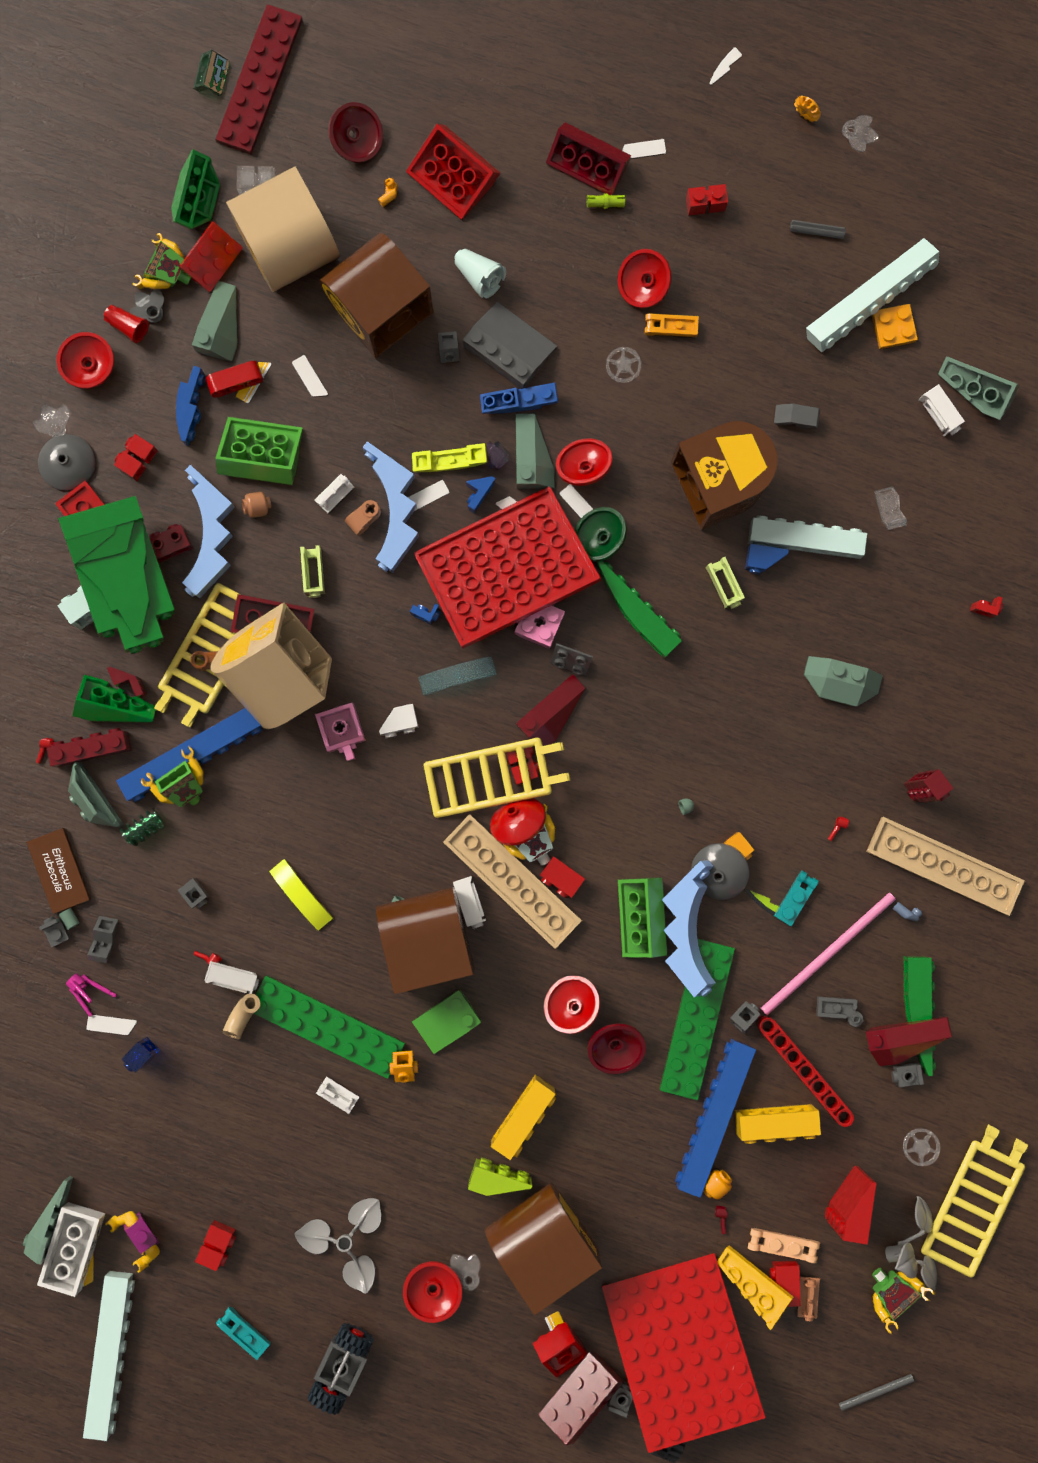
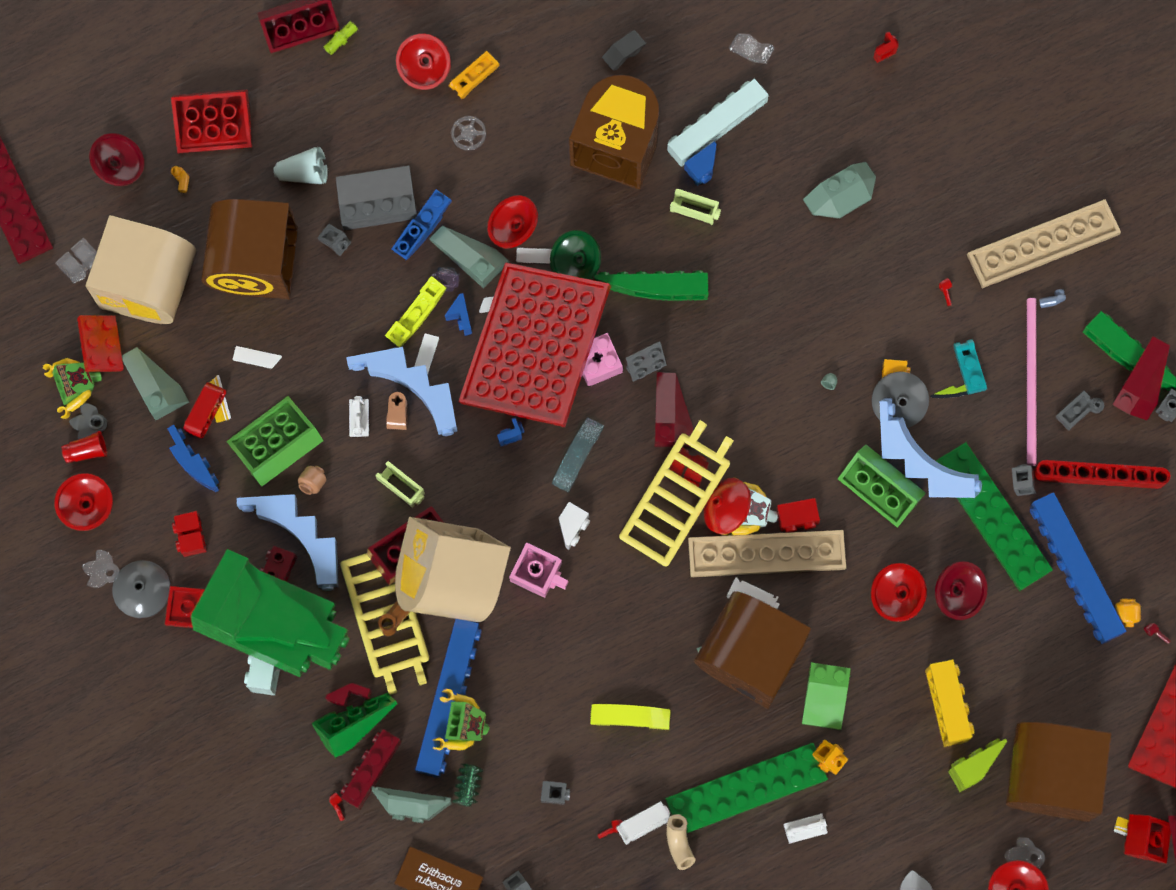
camera: 40 degrees left, 10 degrees down
(195, 191) = (41, 310): green wedge -> none
(777, 1122) = (1119, 529): yellow brick -> none
(928, 786) = (975, 199): dark red brick -> none

